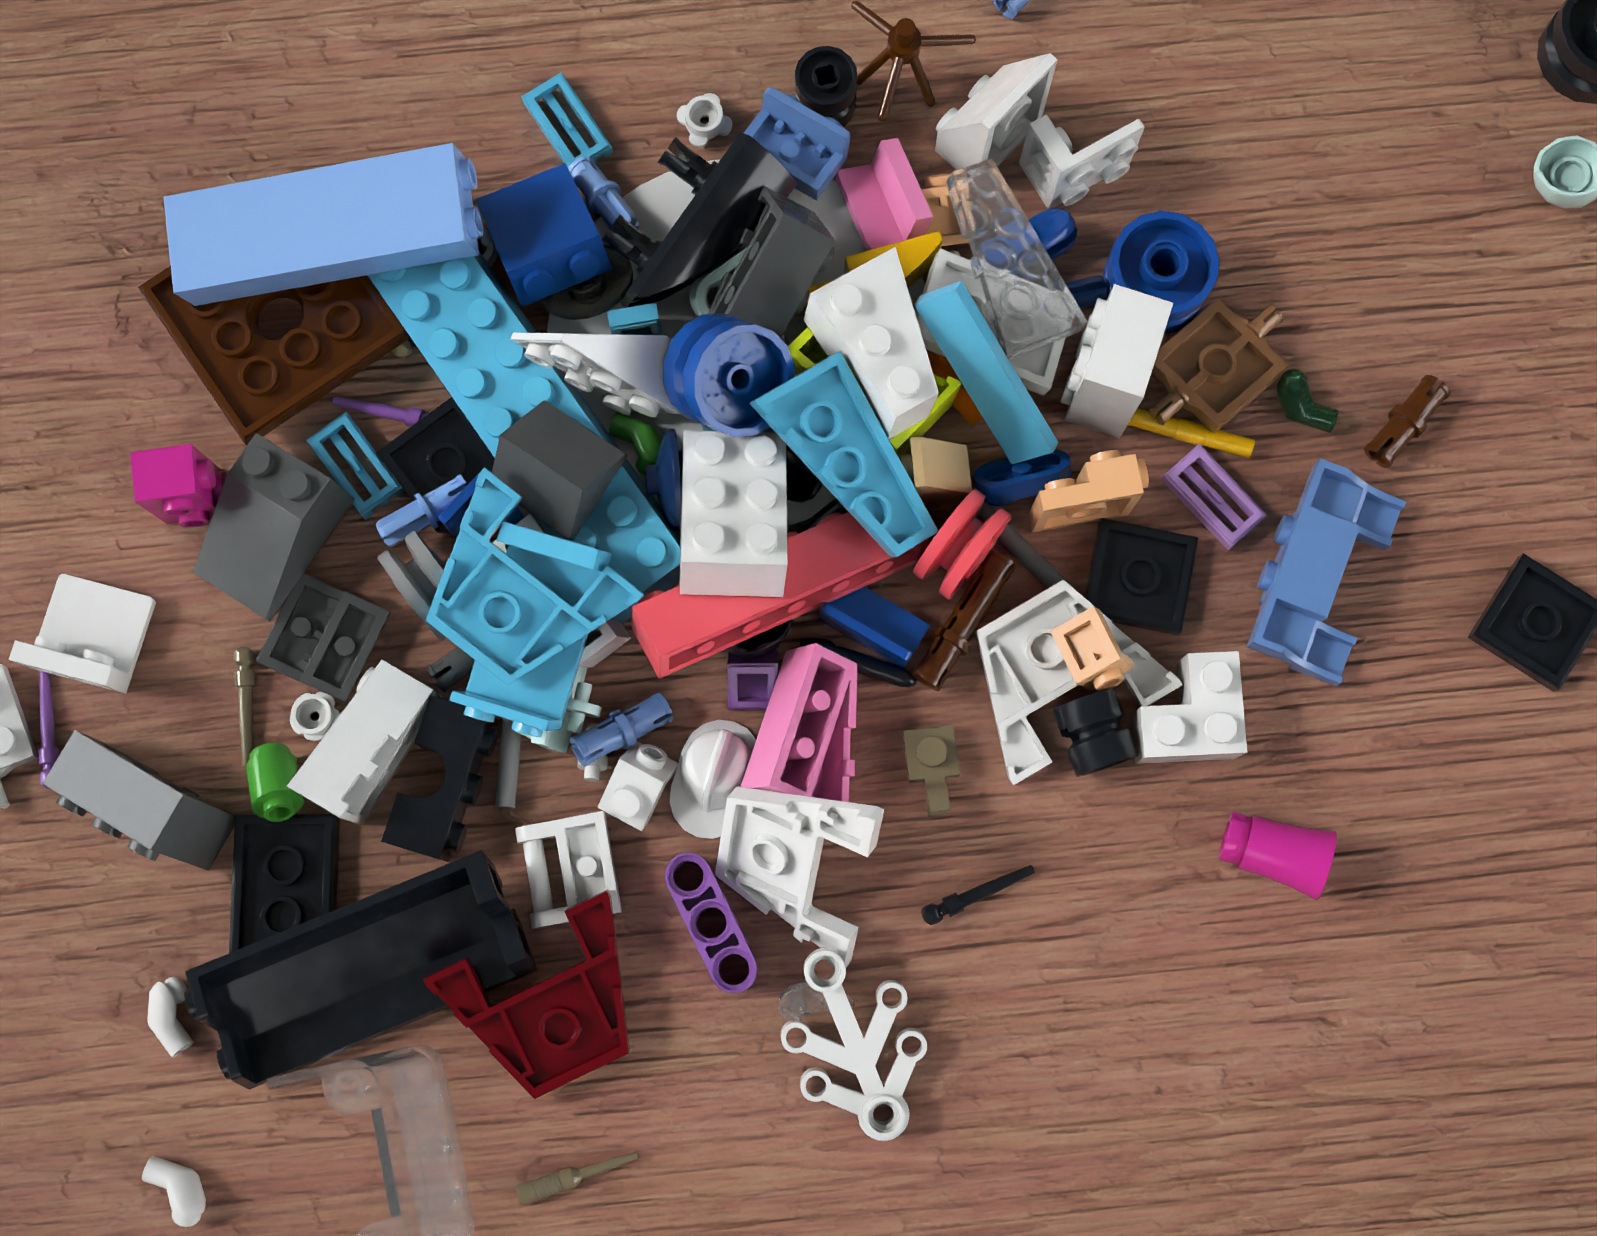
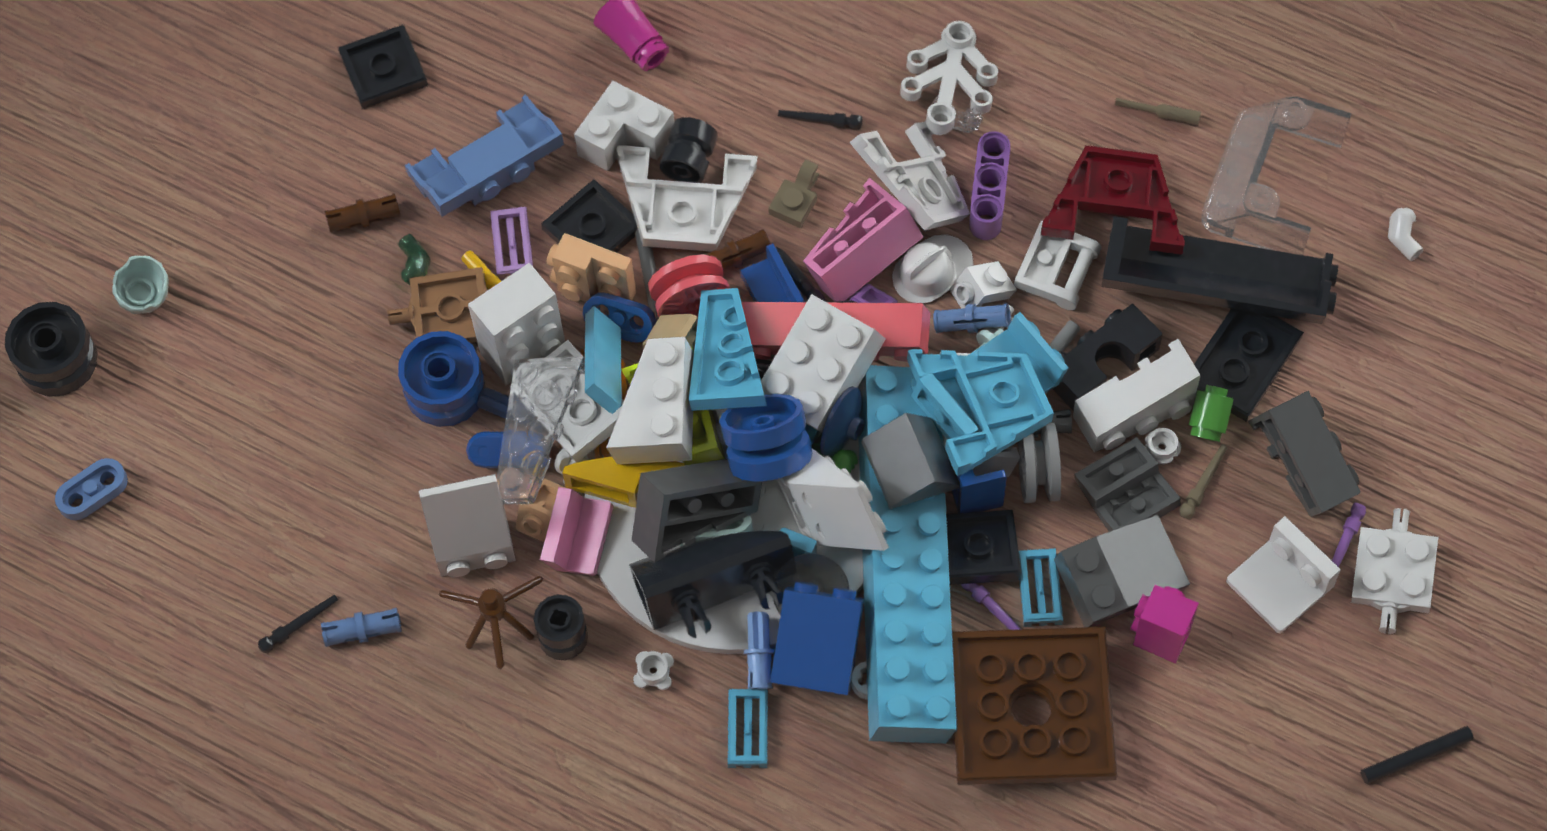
camera: 145 degrees left, 15 degrees down
(163, 1018) = (1359, 331): white arm -> none
(323, 225) = (964, 708): light blue brick -> none
(419, 513) = (1012, 512): light blue axle -> none
(801, 140) = (611, 599): medium blue bracket -> none
(1067, 177) = (429, 463): white bracket -> none
(1091, 651) = (659, 184): light nougat bracket -> none

